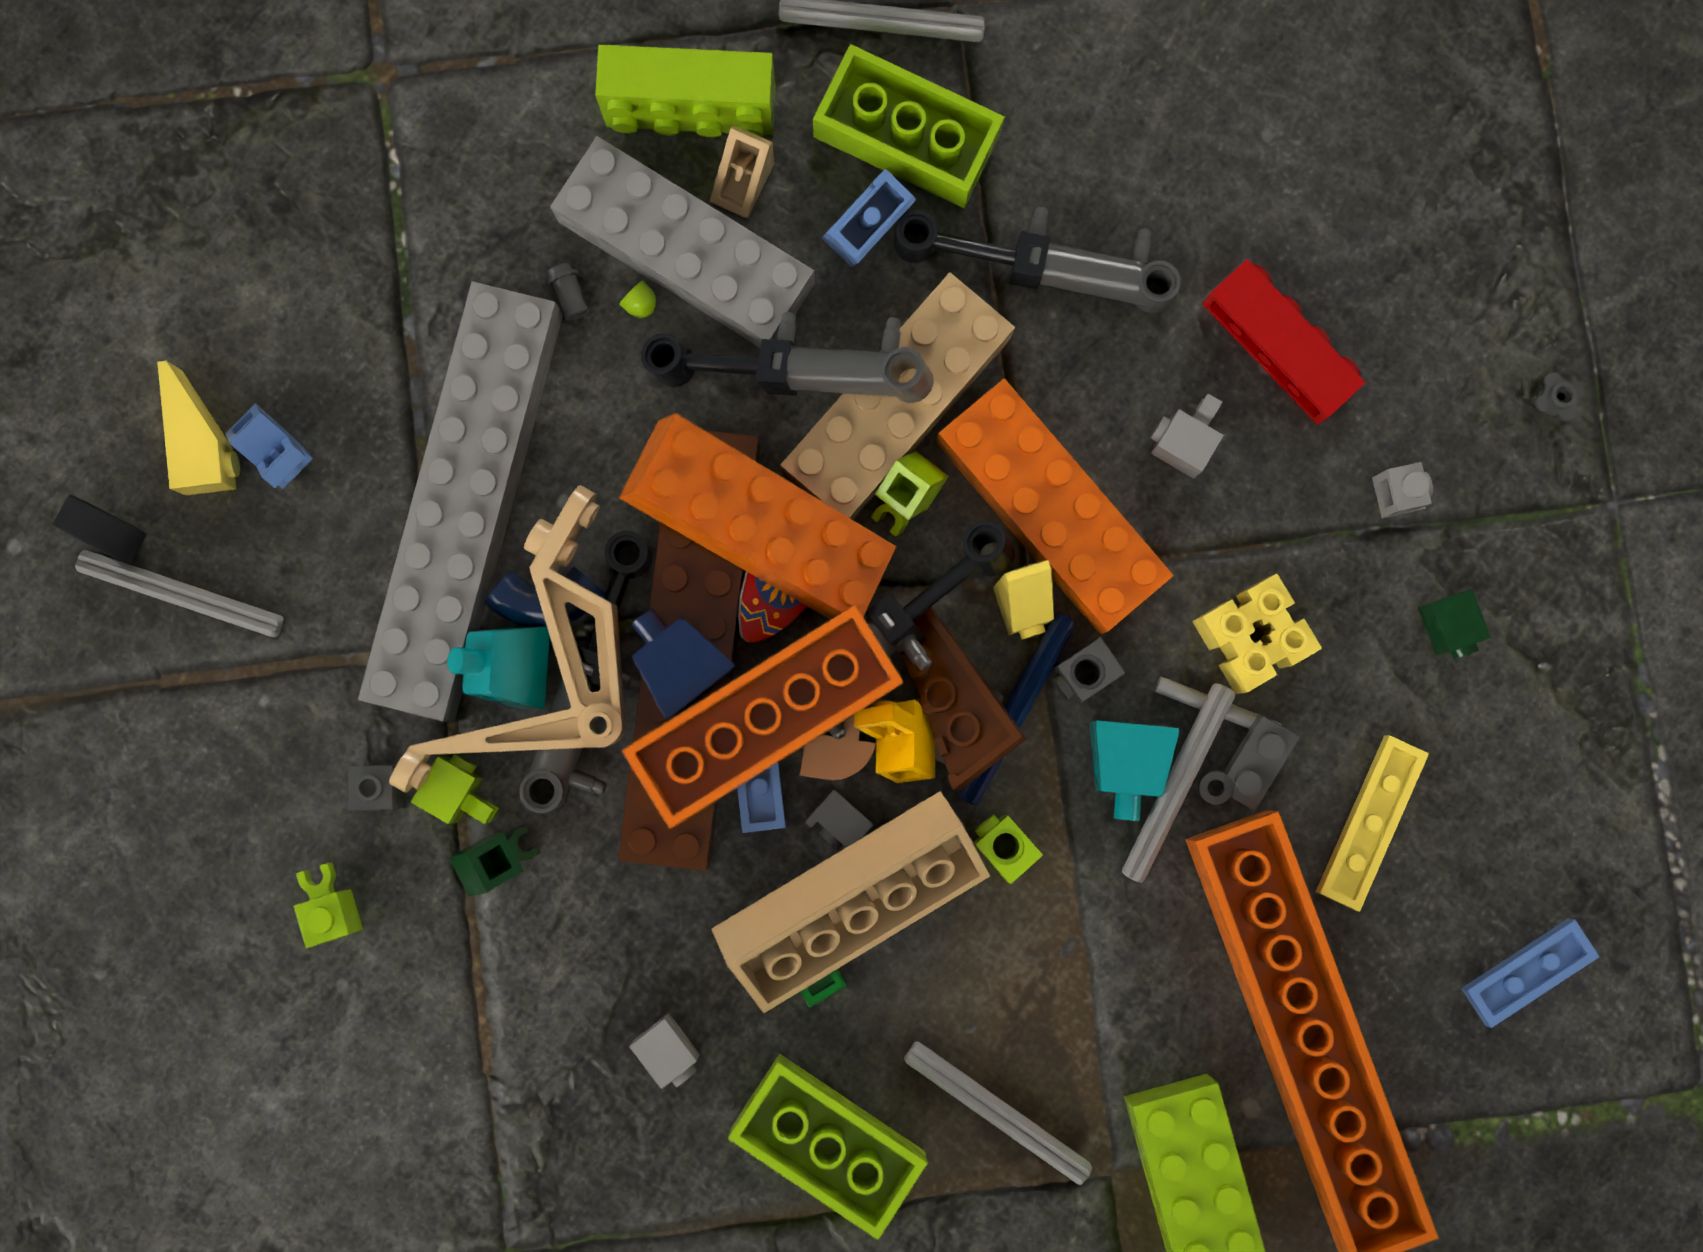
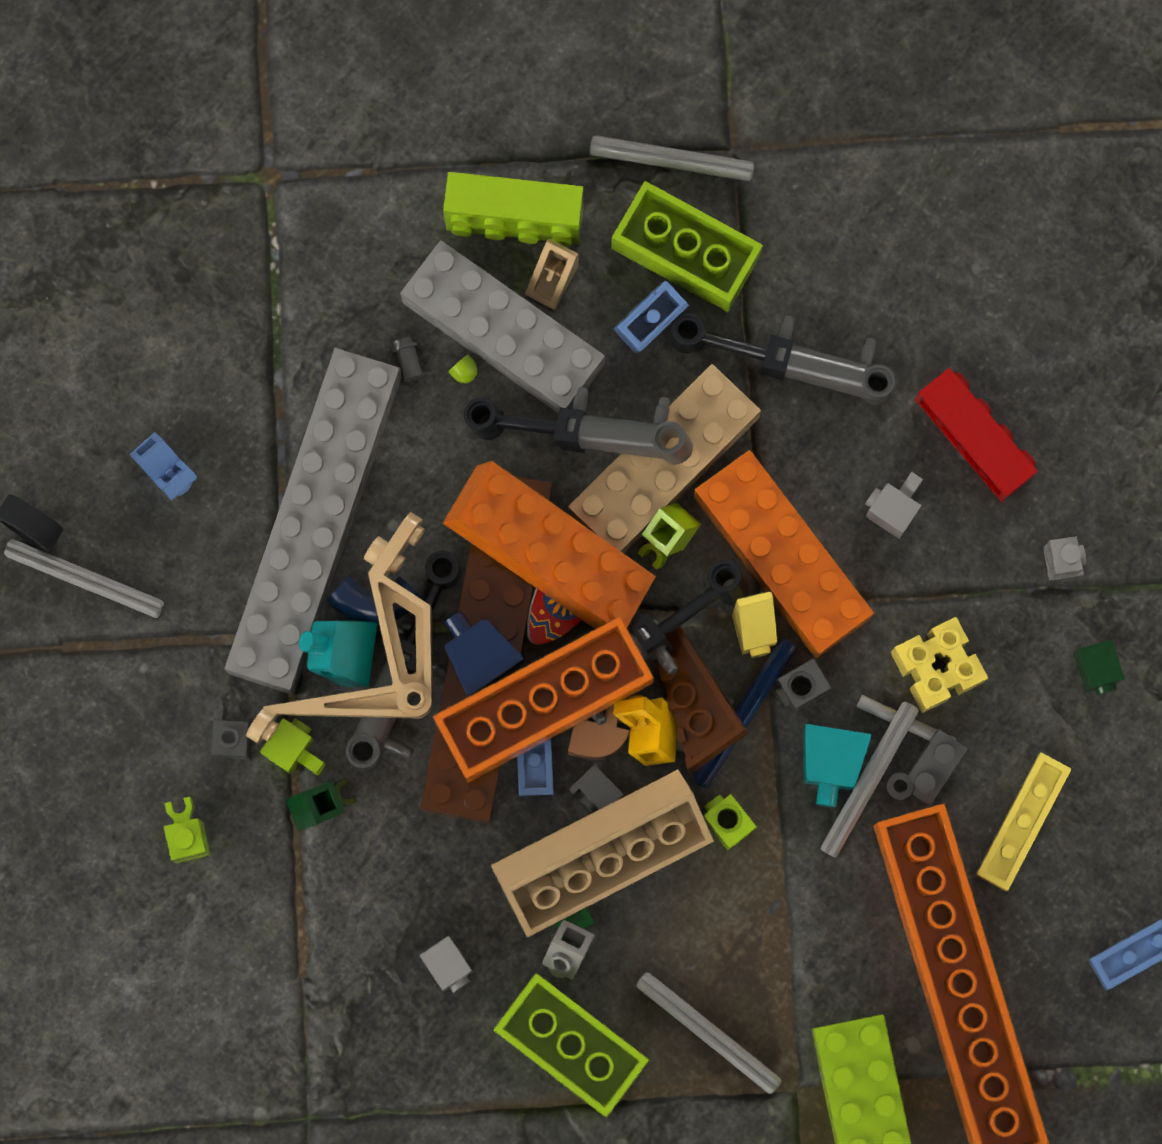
camera: 10 degrees right, 5 degrees down
(195, 446) = (107, 467): light yellow slope -> none
(812, 1036) = (562, 958): none -> light grey brick

